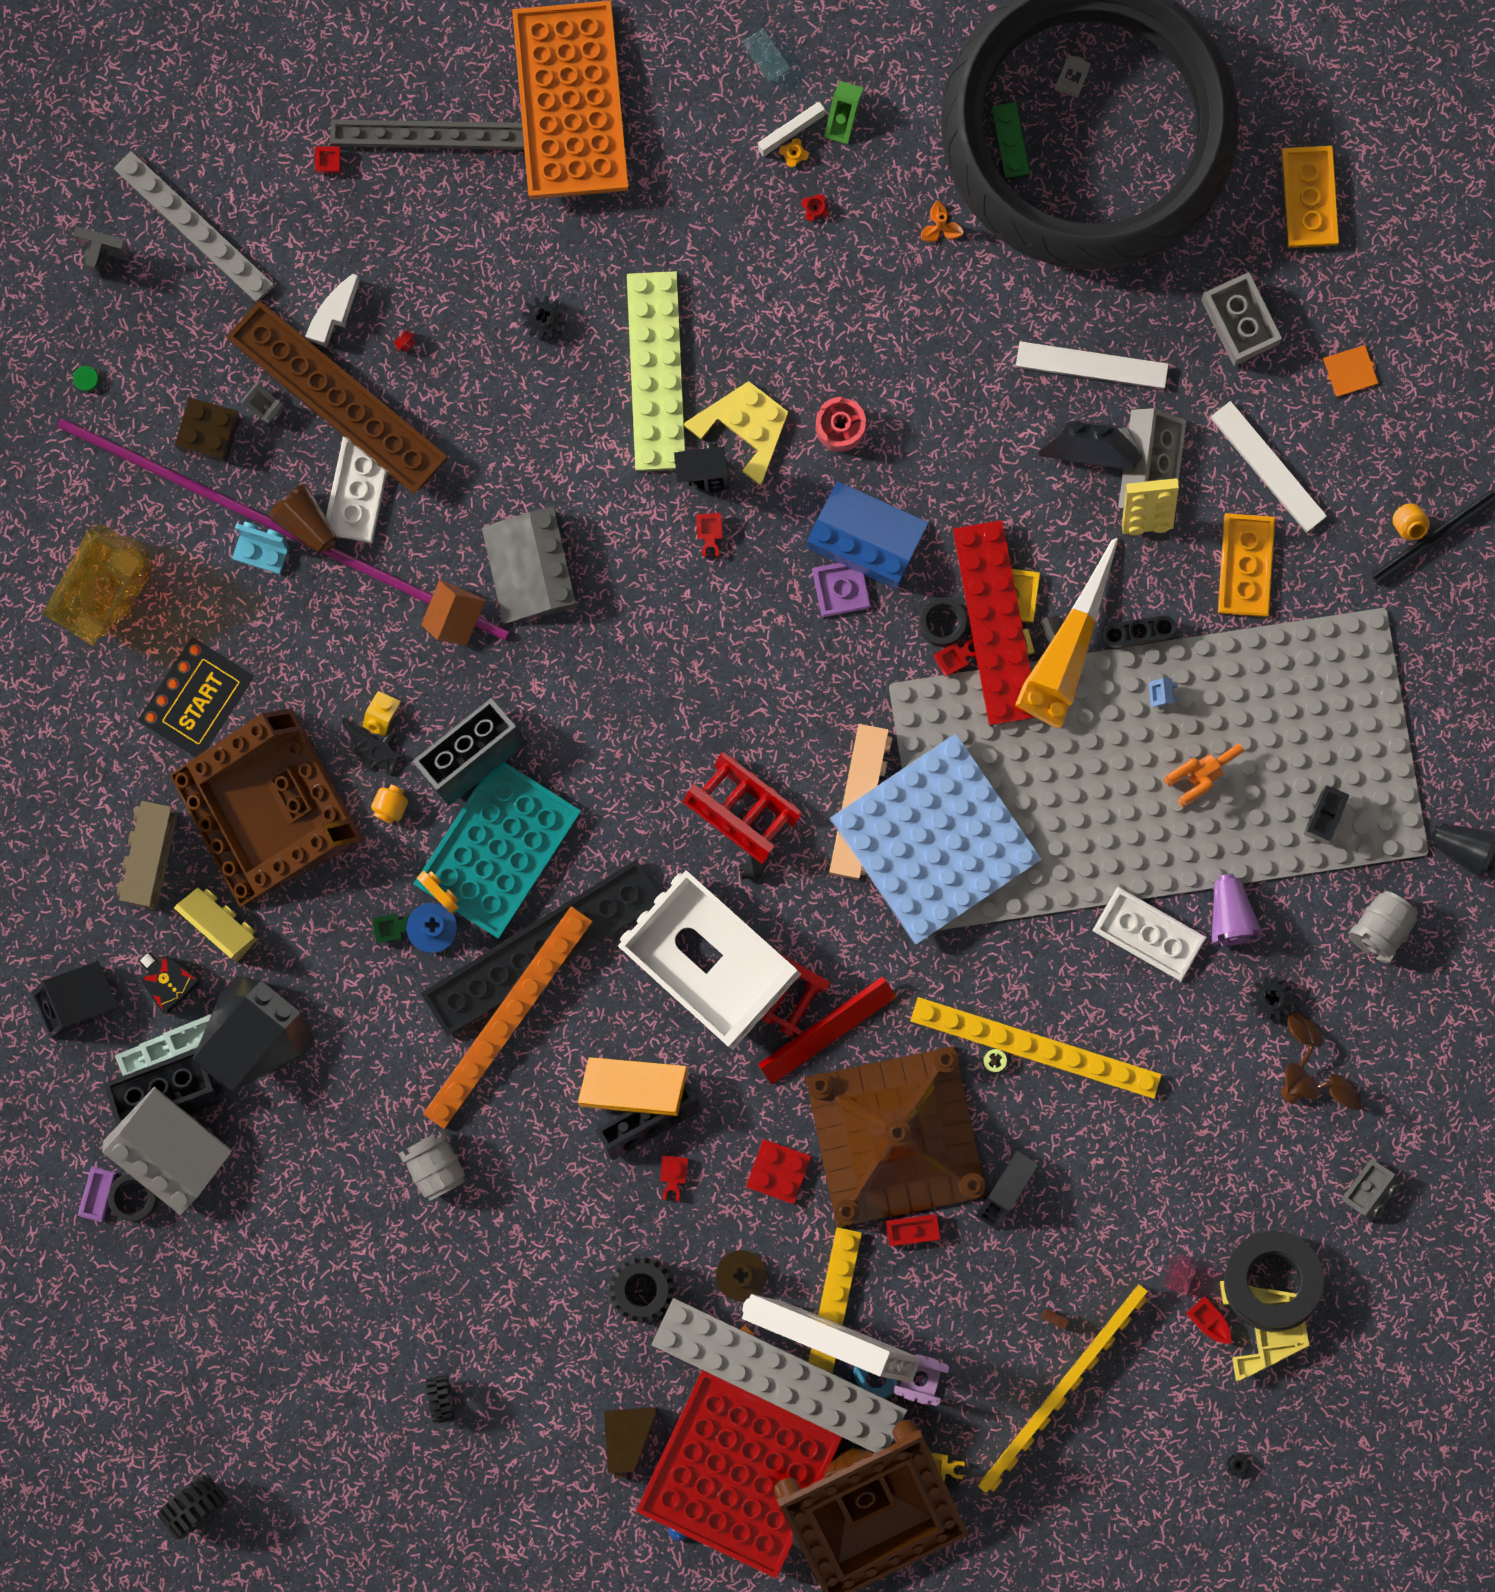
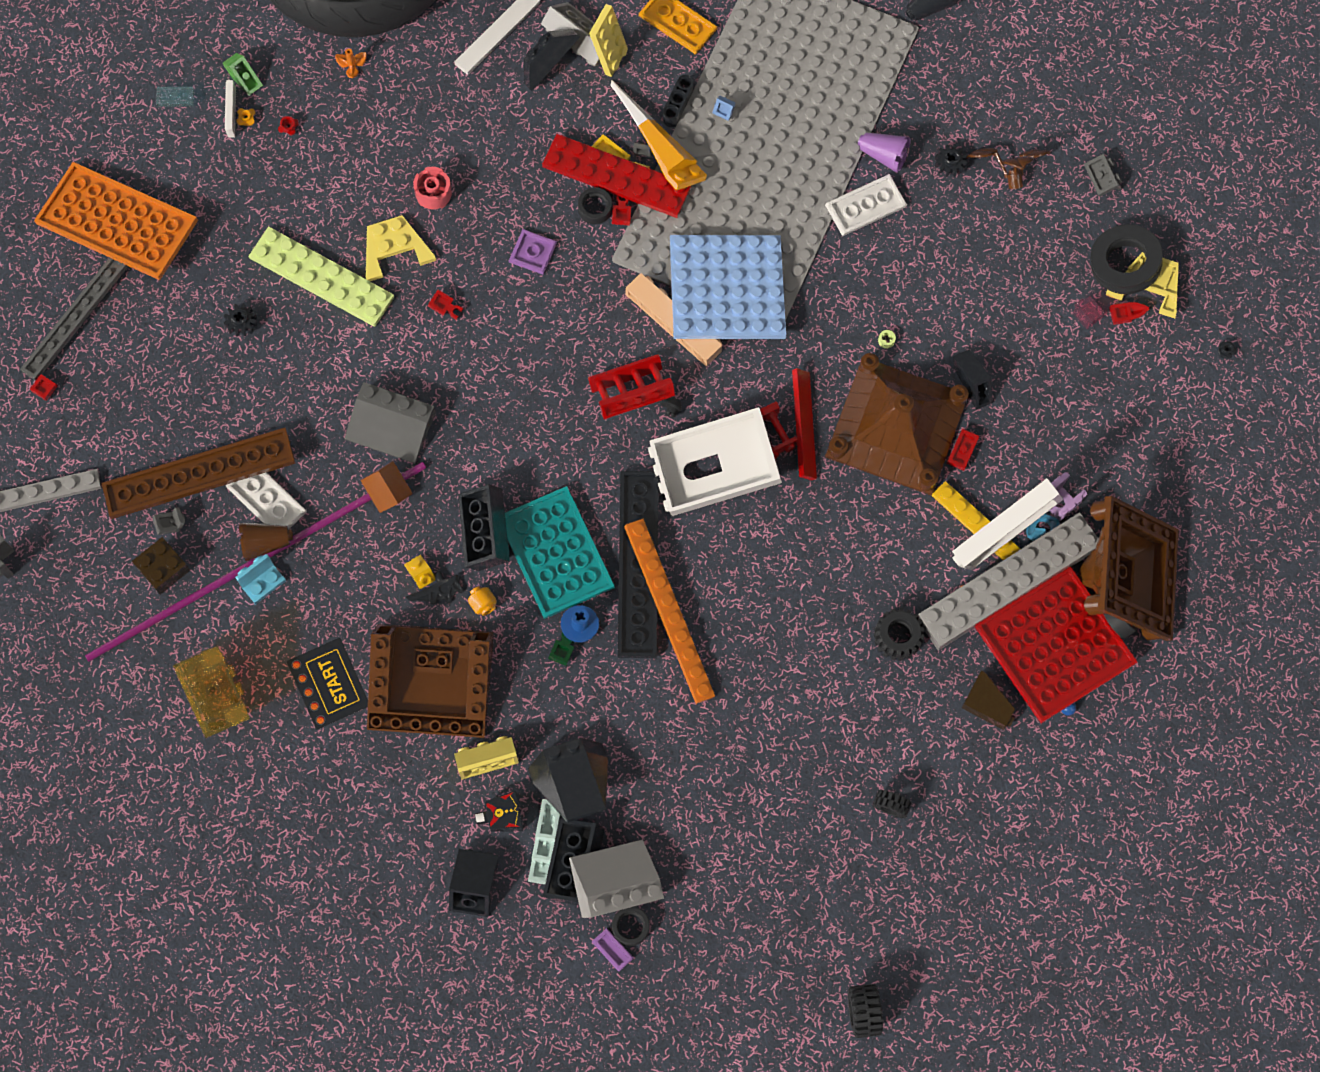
camera: 65 degrees left, 10 degrees down
(86, 378) = (70, 624): green tile -> none
(148, 855) = (411, 772): dark tan brick -> none
(333, 312) = (142, 442): white slope -> none
(404, 341) = (192, 411): red plate -> none
(433, 1166) = (735, 714): light grey piece -> none
(446, 898) = (553, 603): light orange plate -> none
(633, 1086) = (765, 558): light orange tile -> none
(636, 1128) = (792, 563): black brick -> none
(674, 1172) = (835, 571): red plate -> none
(703, 469) = (406, 272): black wedge -> none
(740, 1275) = (927, 569): dark brown piece -> none
(778, 1171) = (874, 508): red plate -> none
(866, 535) = (511, 217): blue slope -> none
(1035, 1048) = (893, 312): yellow plate -> none
(1055, 1319) = (1071, 399): copper tile -> none
(1056, 1398) = (1121, 427): yellow plate -> none
(1201, 773) = (789, 115): orange plant -> none
(1326, 814) = (860, 61): black brick -> none
(1384, 926) = (948, 71): light grey piece -> none

